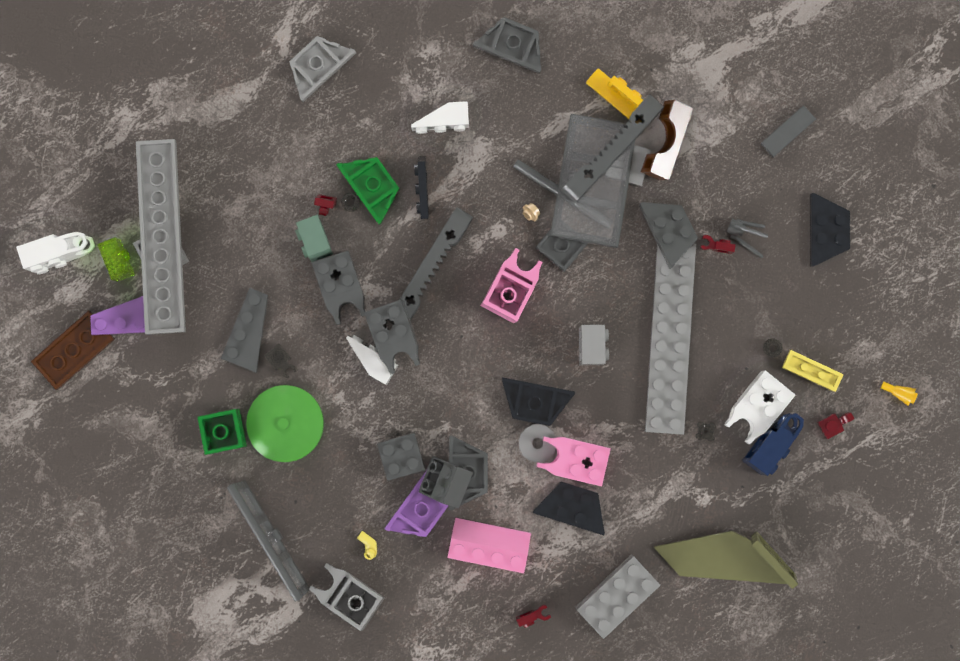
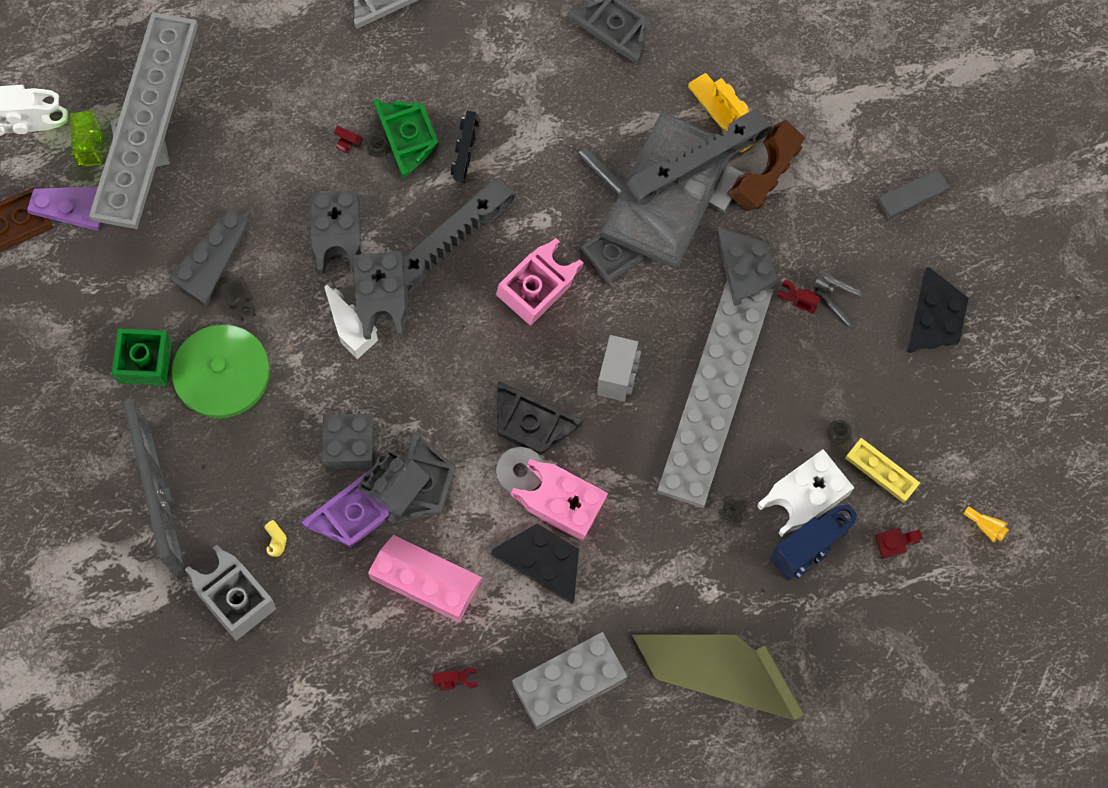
camera: 10 degrees right, 15 degrees down
(314, 238) = (321, 168): sand green brick -> none
(449, 116) = (516, 81): white slope -> none
(531, 212) = (585, 206): tan plate -> none

